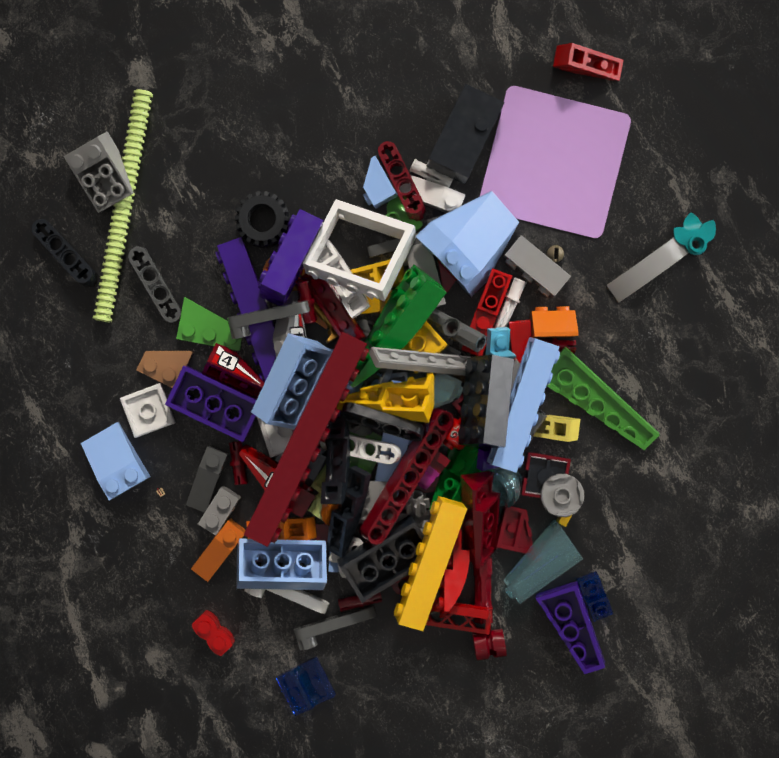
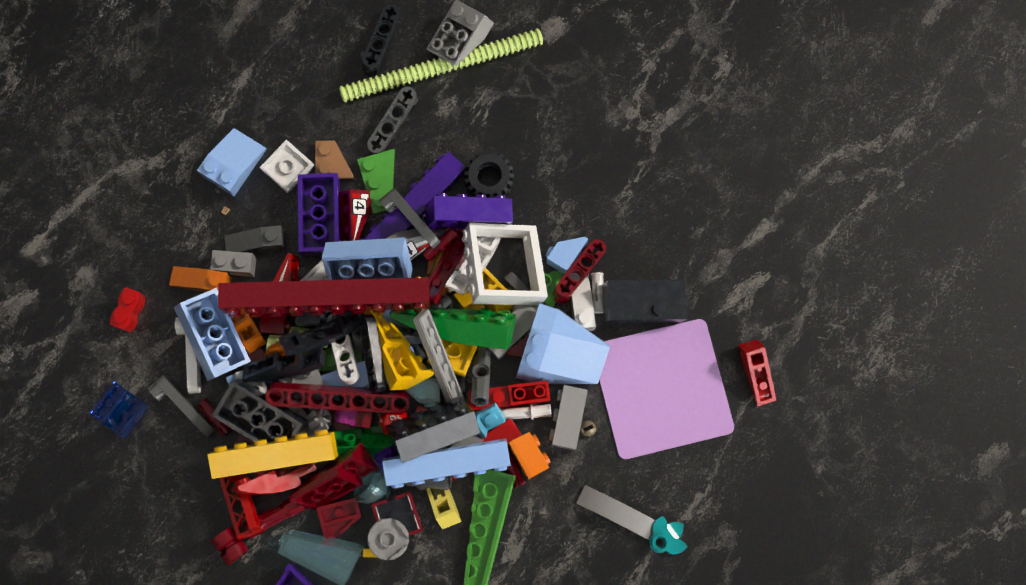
camera: 60 degrees right, 10 degrees down
(237, 463) = (276, 262): dark red pin -> none

